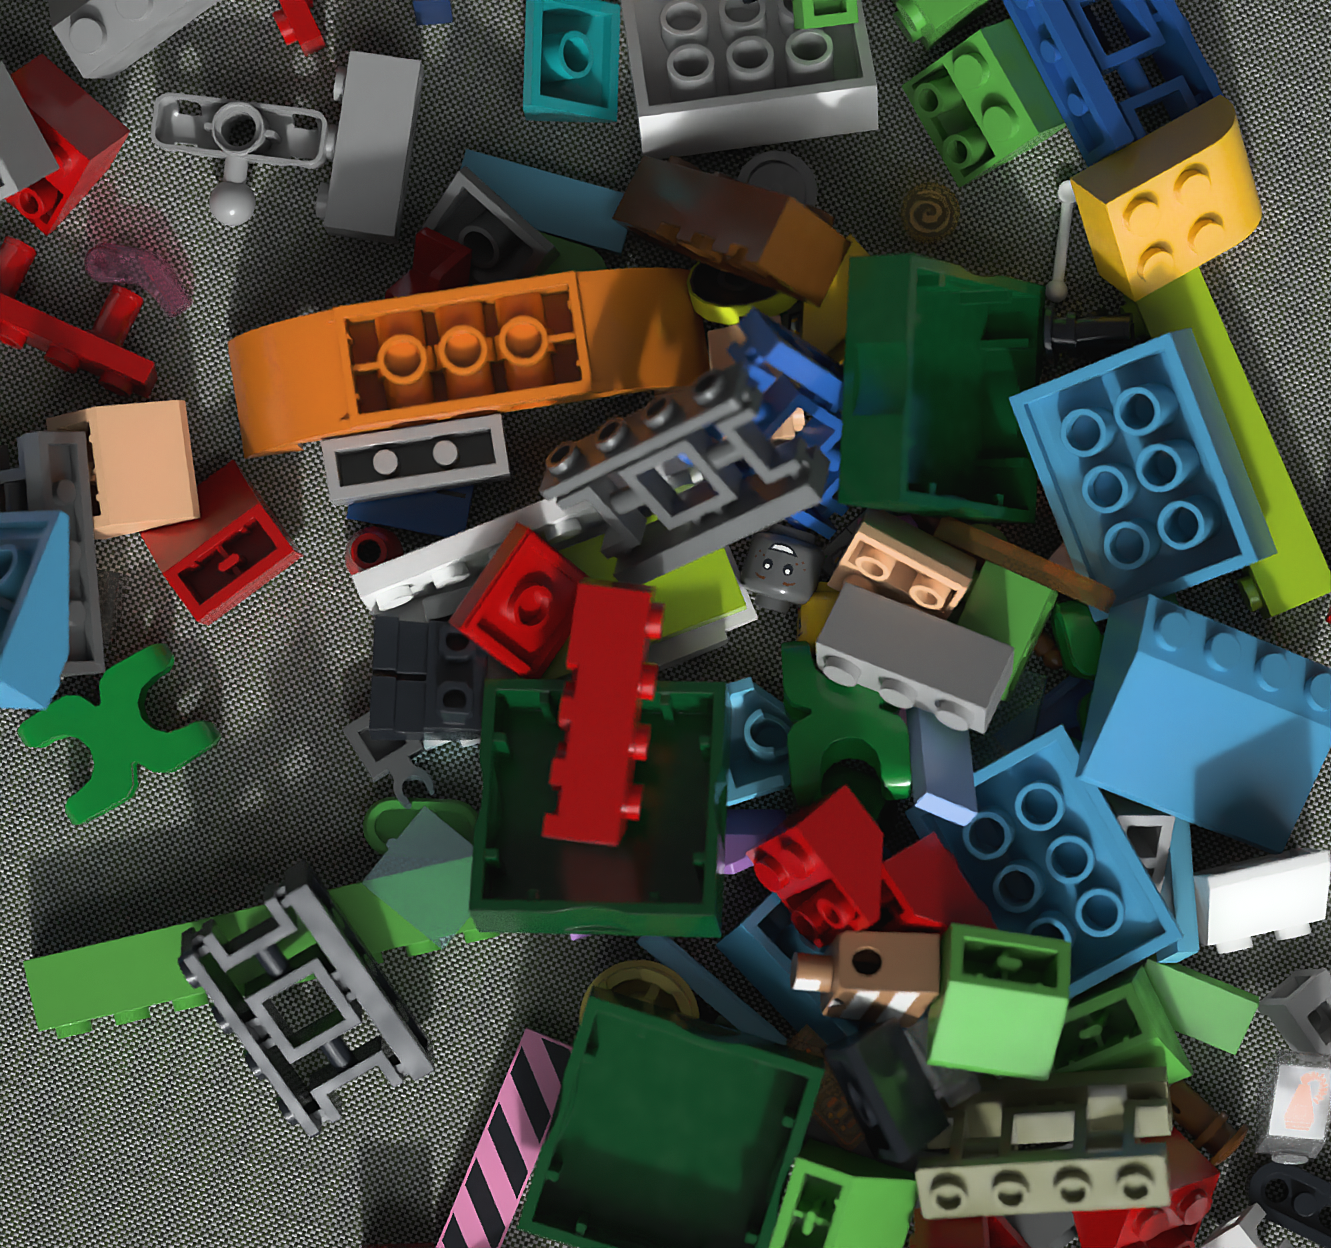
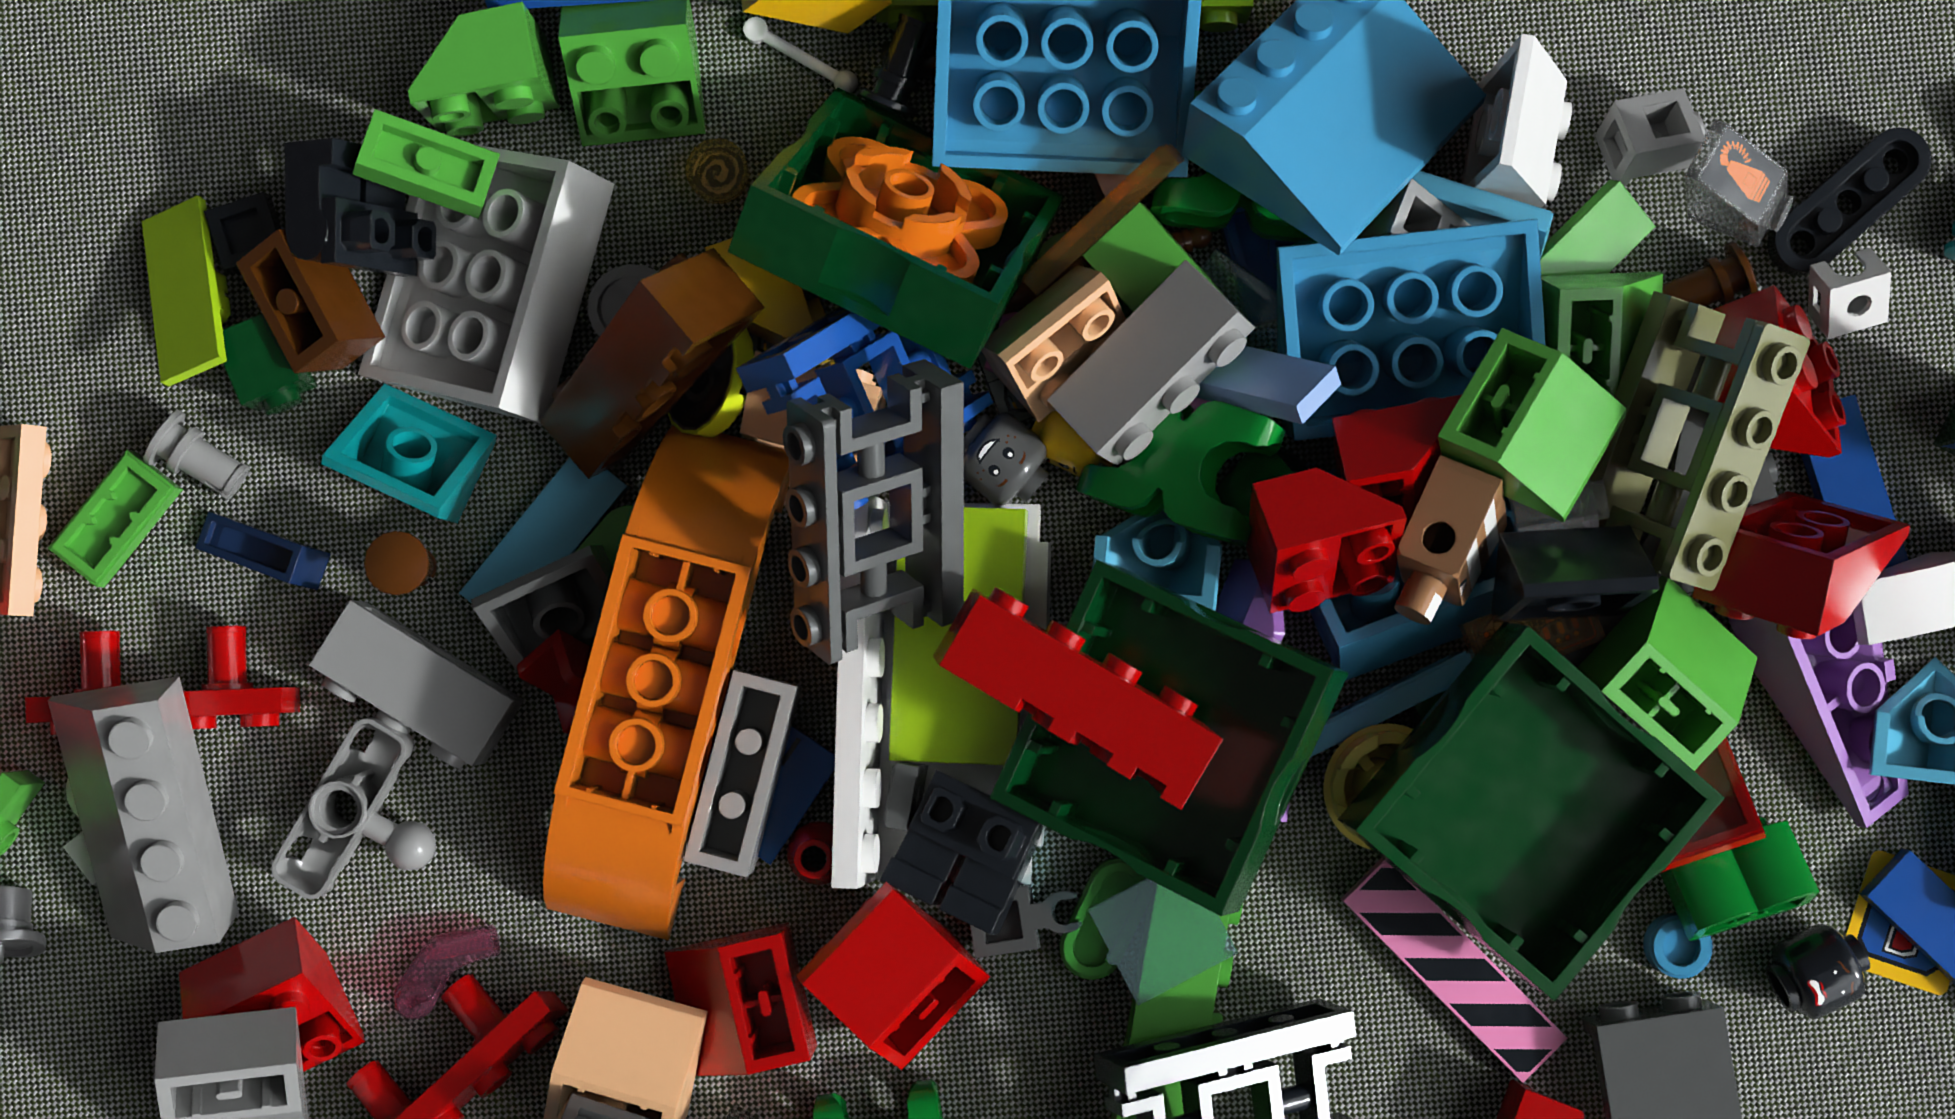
camera: 70 degrees left, 0 degrees up
(298, 663) = (893, 976): none -> red slope
(469, 88) = (398, 563): none -> reddish brown pin
(521, 603) = (931, 729): red tile -> none
(960, 390) = (908, 204): none -> orange plant

